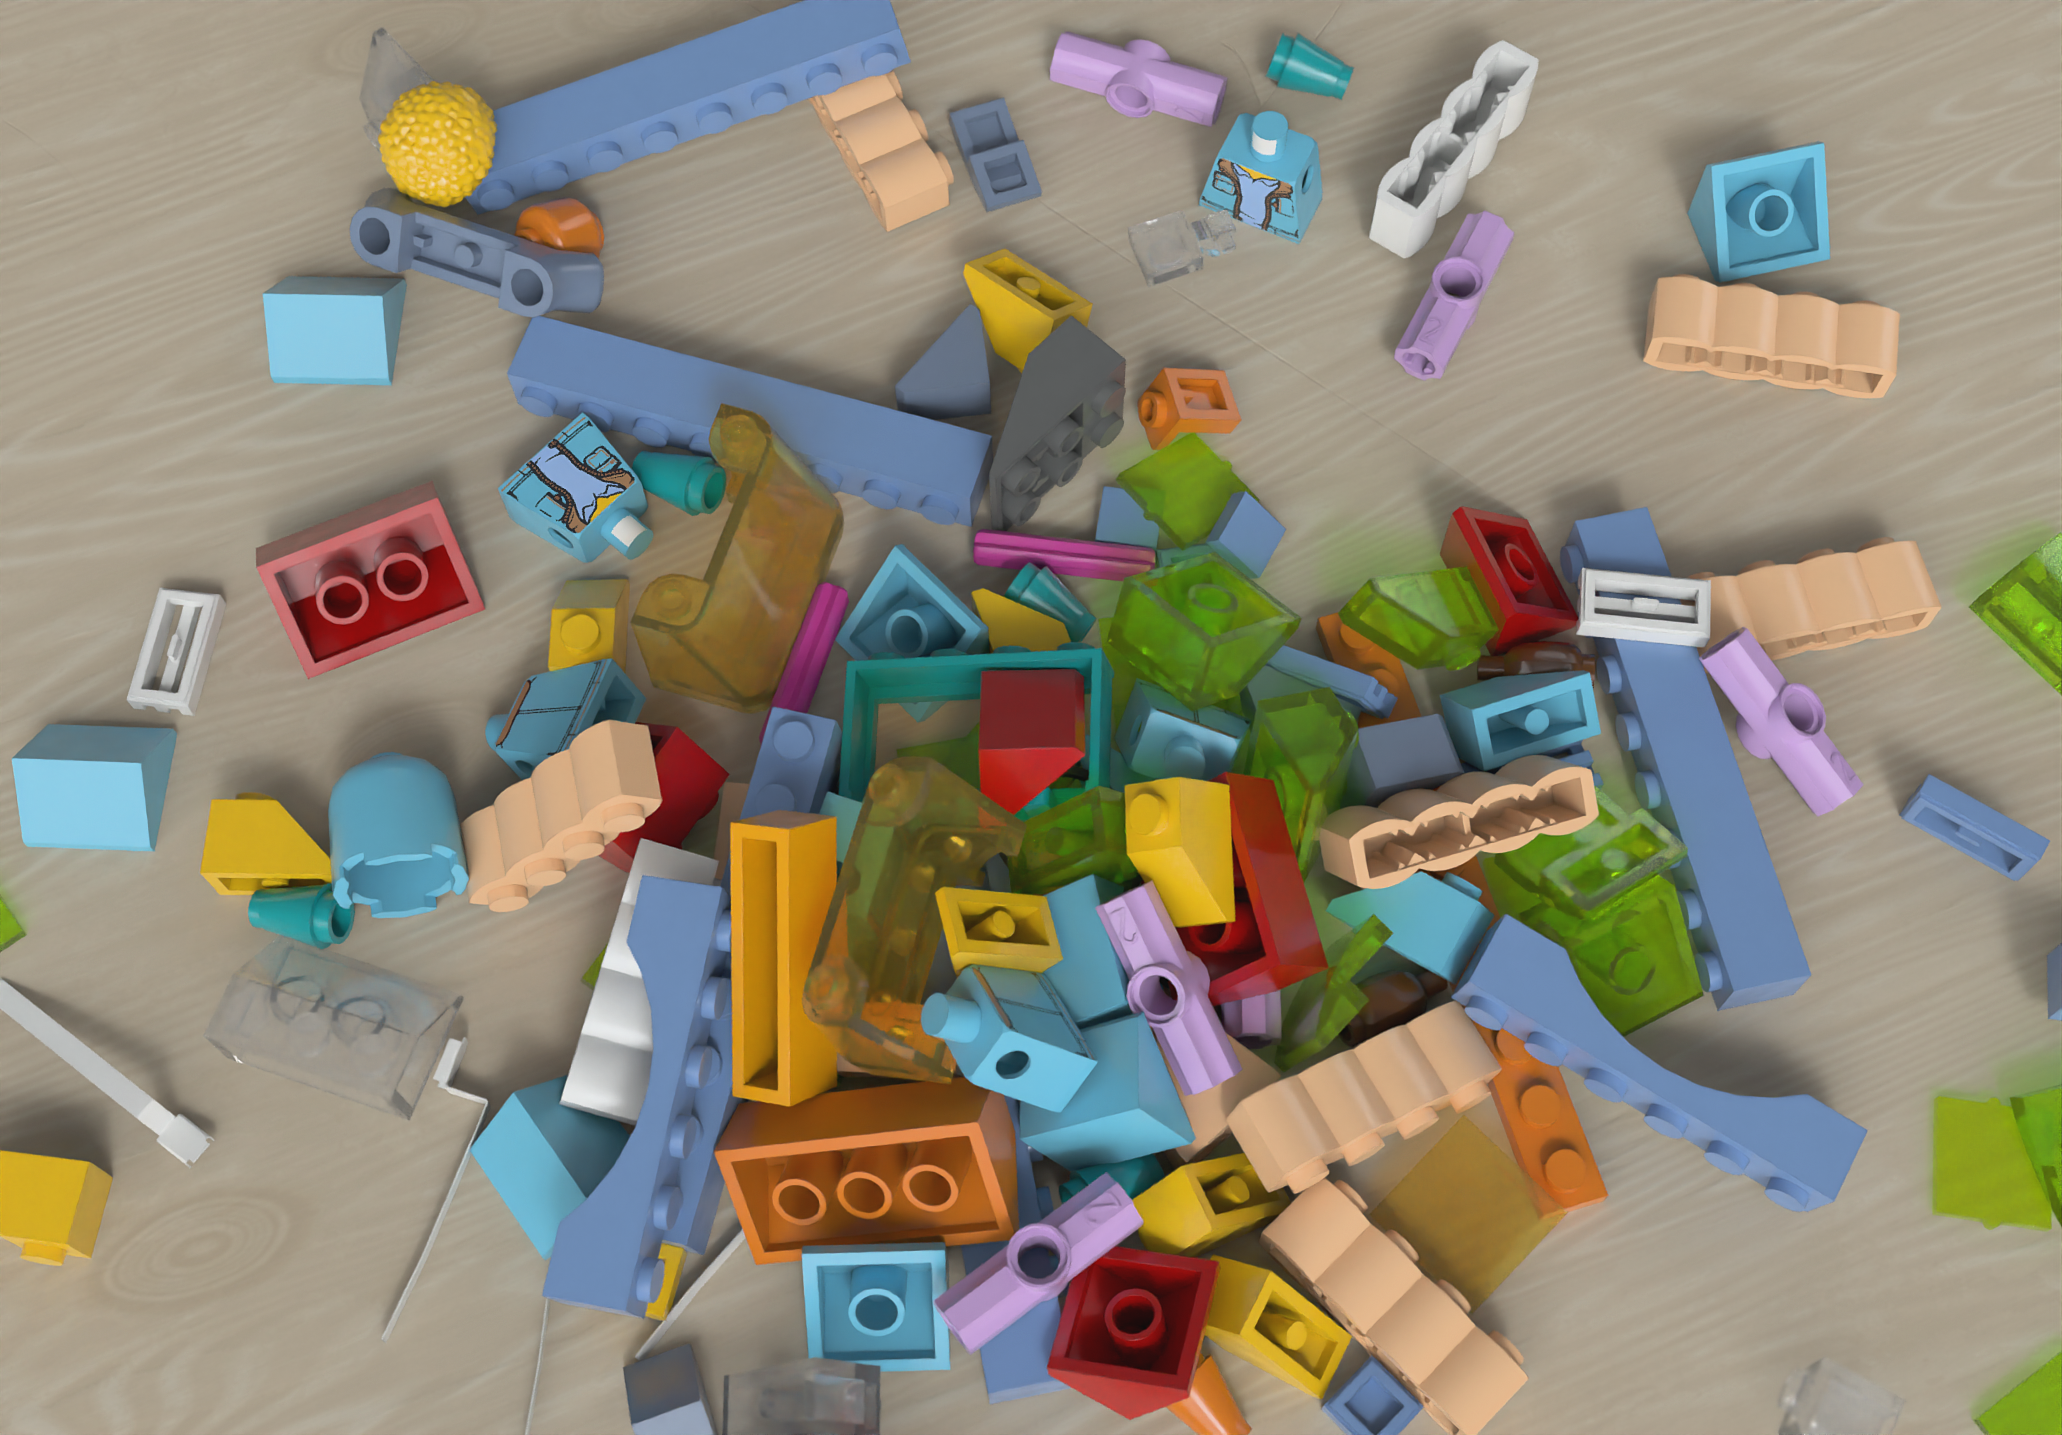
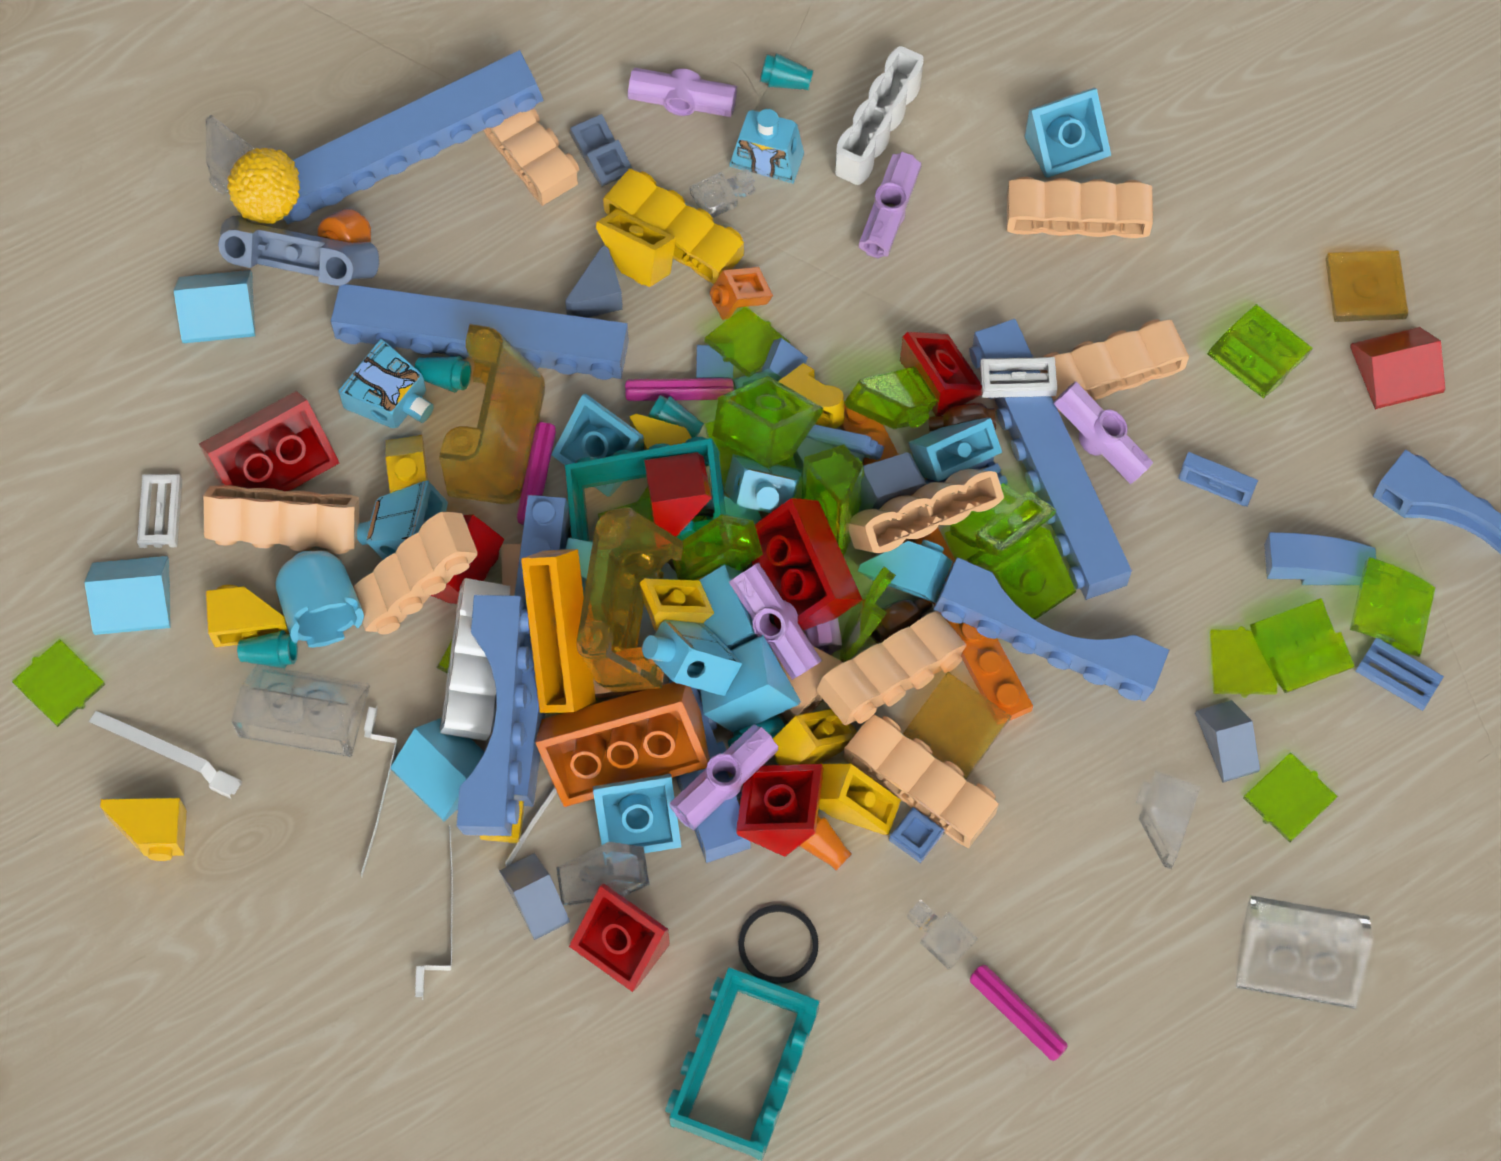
camera: 10 degrees left, 0 degrees up
(364, 689) = (281, 517): none -> light nougat brick
(1060, 414) = (666, 304): dark grey slope -> none
(1127, 307) = (698, 242): none -> yellow brick
(1184, 845) = (773, 540): yellow slope -> none
(1311, 600) = (829, 397): none -> yellow leg
(1959, 1307) = (1230, 740): none -> slope

